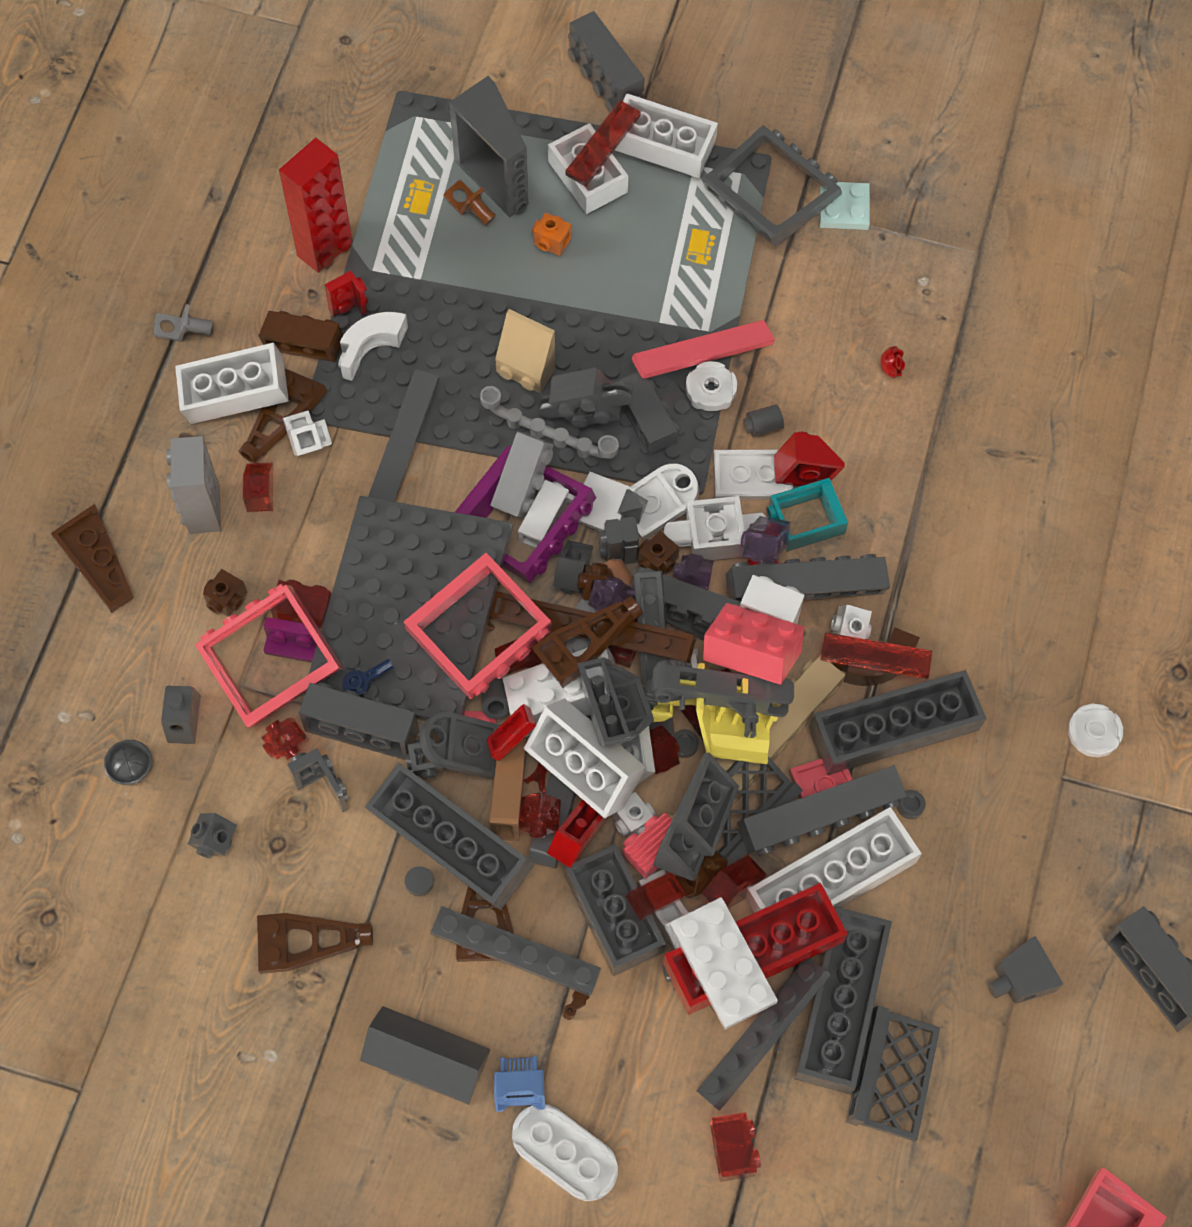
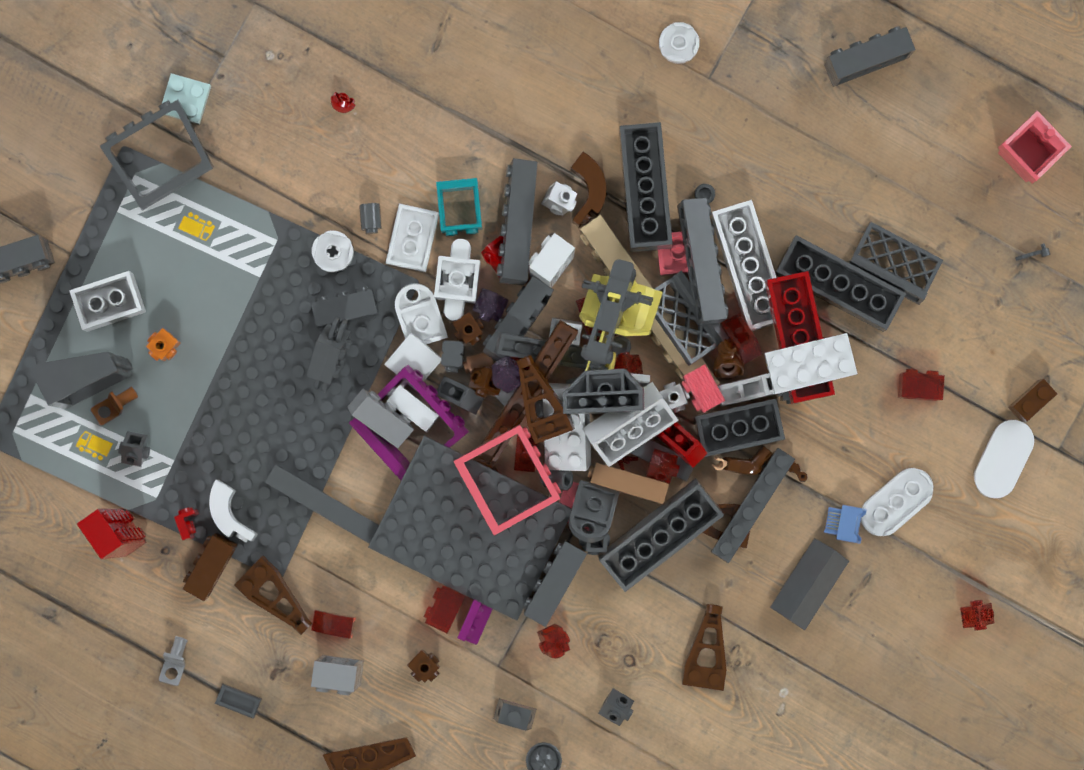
camera: 75 degrees left, 20 degrees up
(146, 404) = (238, 701): none -> dark grey tile
(231, 383) = (244, 630): white brick -> none
(235, 623) = (521, 630): coral window -> none
(305, 434) = (301, 579): white brick -> none
(312, 767) = (582, 629): dark grey bracket -> none
(360, 682) = (524, 579): dark blue plate -> none
(419, 881) = (682, 563): dark grey tile -> none
(423, 229) = (134, 449): none -> dark grey brick
(511, 732) = (596, 473): red plate -> none
(526, 352) = (277, 392): tan slope -> none
(565, 928) = (744, 466): none -> reddish brown arm
(602, 143) = (94, 284): clear red tile -> none
(607, 445) = (374, 347): light grey bar -> none
(632, 505) = (424, 338): dark grey slope -> none
(655, 895) = (739, 397): clear red tile -> none
(669, 137) = (91, 231): white brick -> none
(698, 820) = (698, 354): dark grey slope -> none
(702, 349) = (299, 249): coral tile -> none
(753, 643) = (581, 280): coral piece -> none
(763, 1033) = (865, 364): dark grey plate -> none
(765, 539) = (483, 245): clear purple brick -> none
(805, 460) = (419, 197): red slope -> none
(876, 655) = (592, 188): clear red tile -> none
(1025, 974) = (848, 151): dark grey torso -> none

